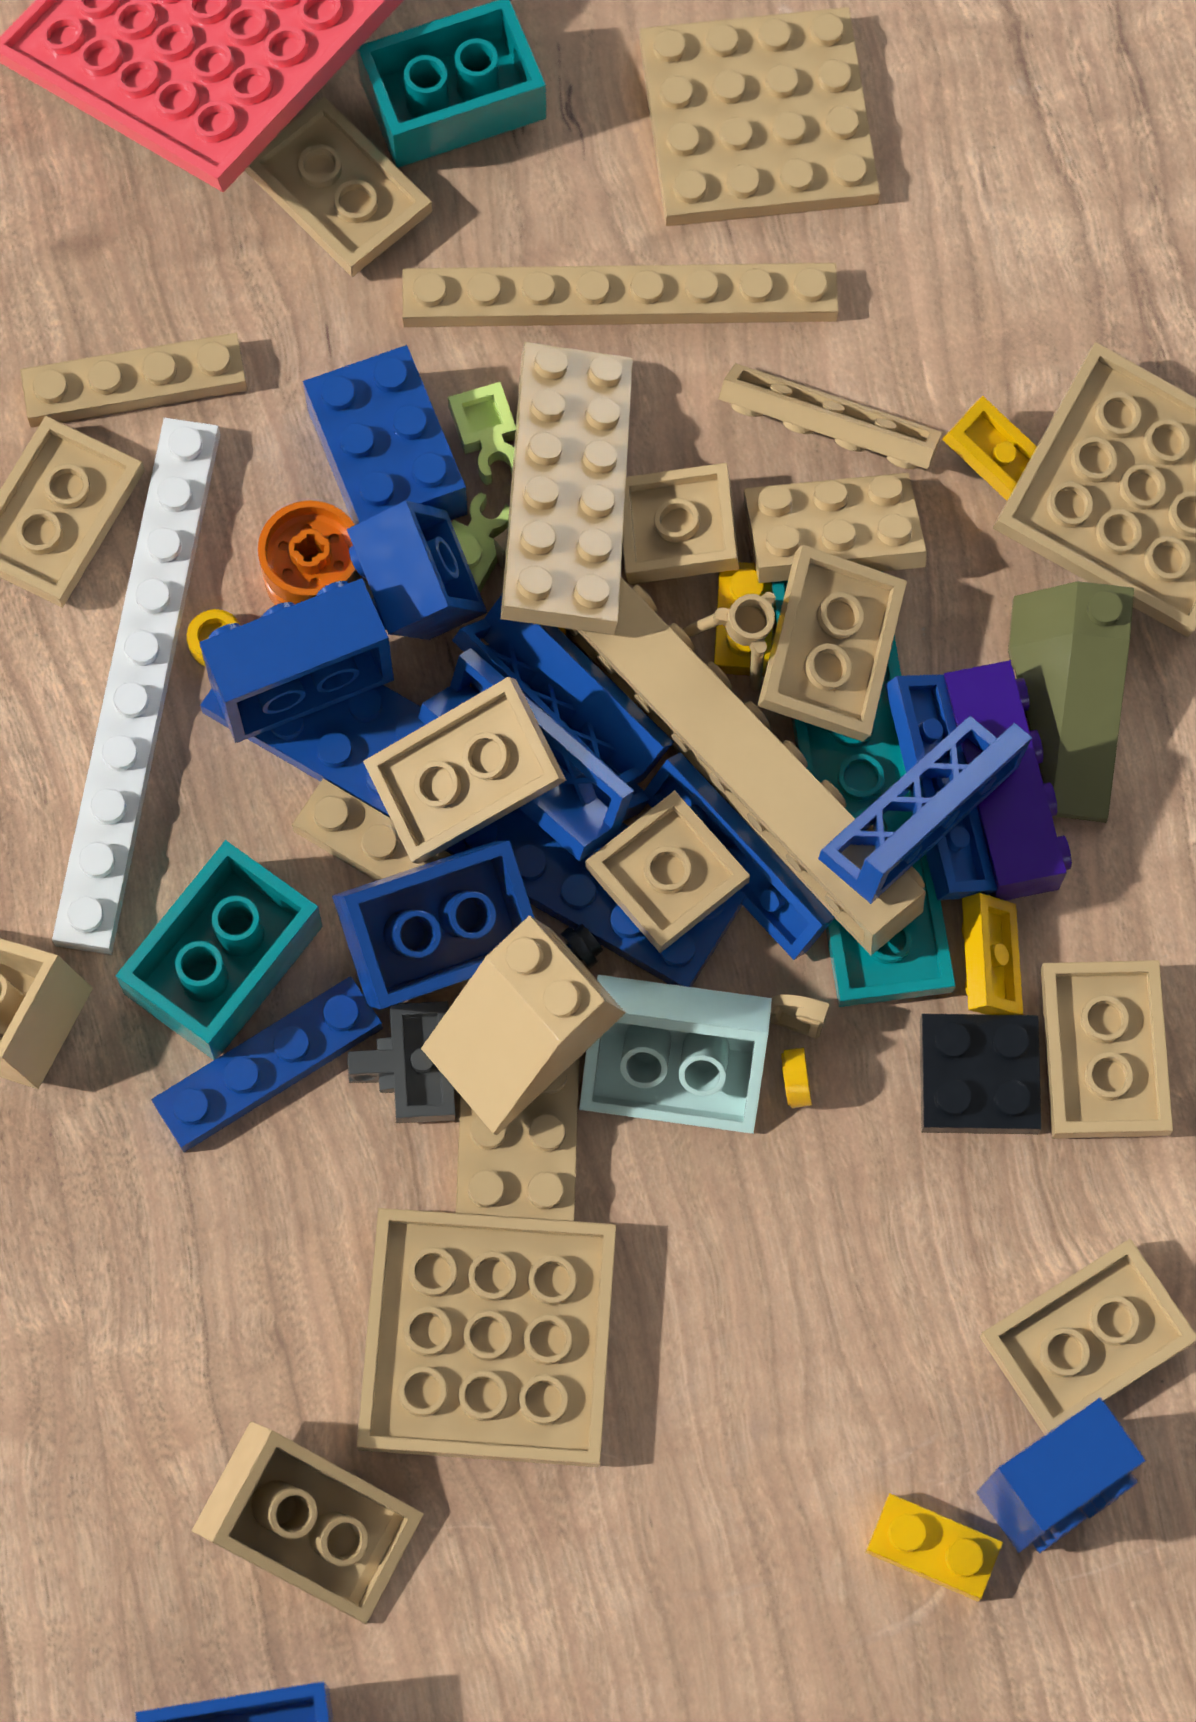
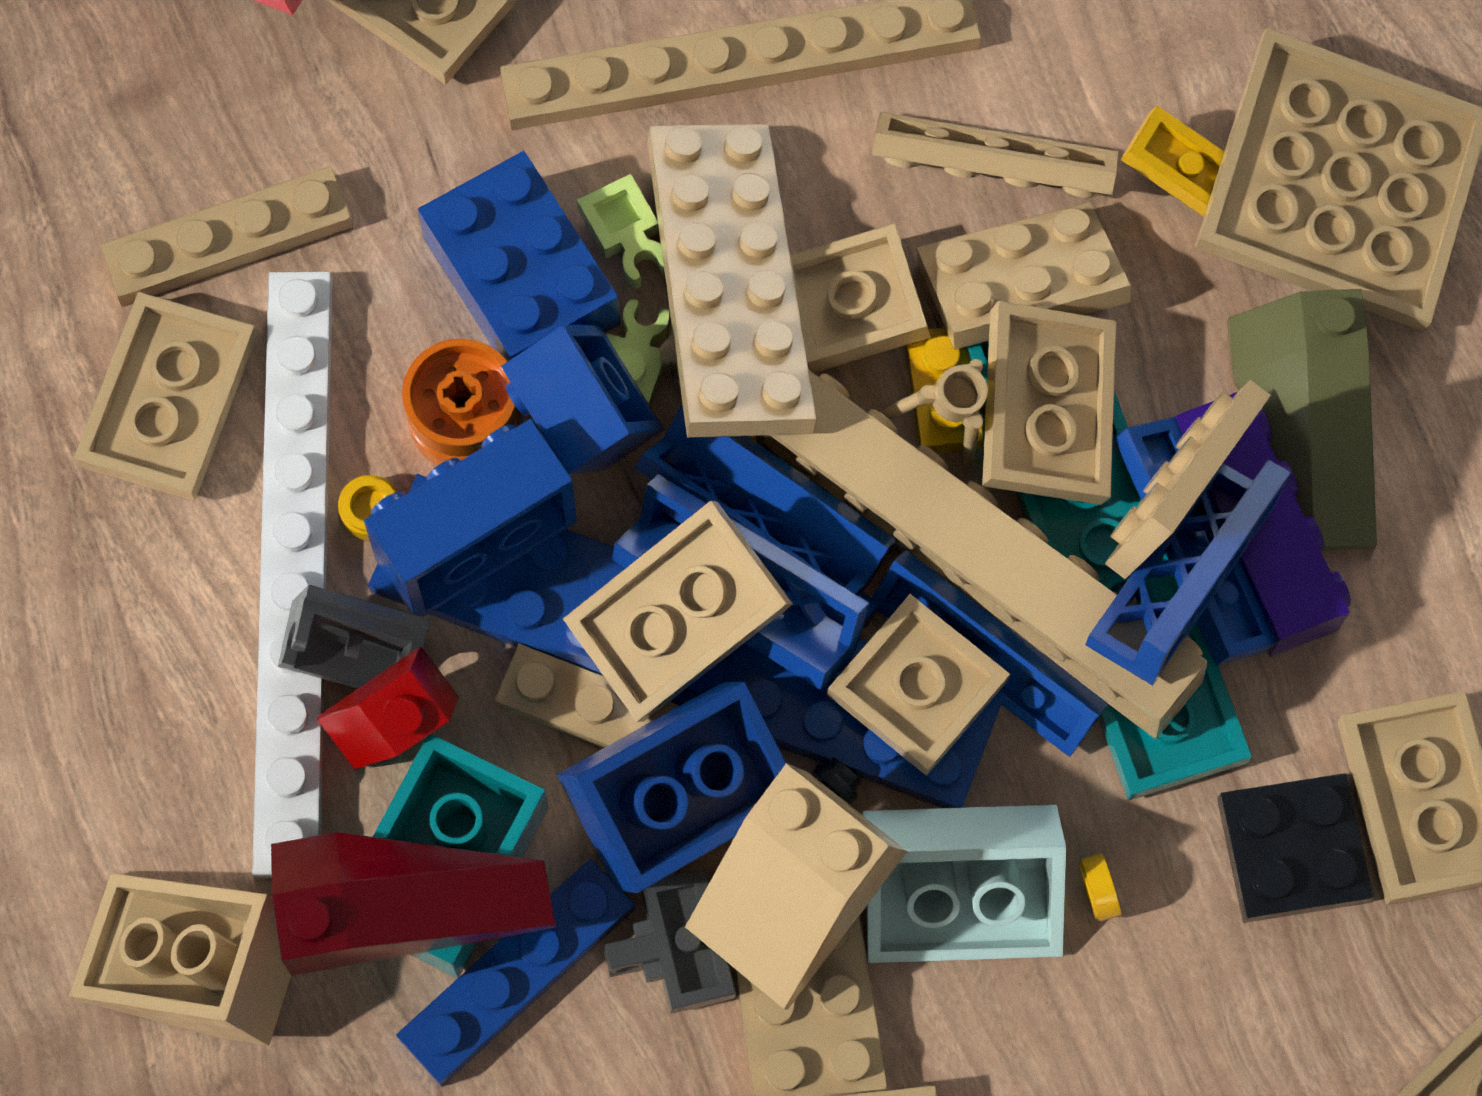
camera: 10 degrees left, 0 degrees up
(155, 975) = (382, 898): none -> dark red wedge
(176, 751) = (347, 636): none -> dark grey hinge
(198, 816) = (391, 711): none -> red slope
(799, 1014) = (1090, 815): tan tile -> none
(933, 724) = (1185, 477): none -> tan plate
(991, 955) = (1283, 716): yellow plate -> none

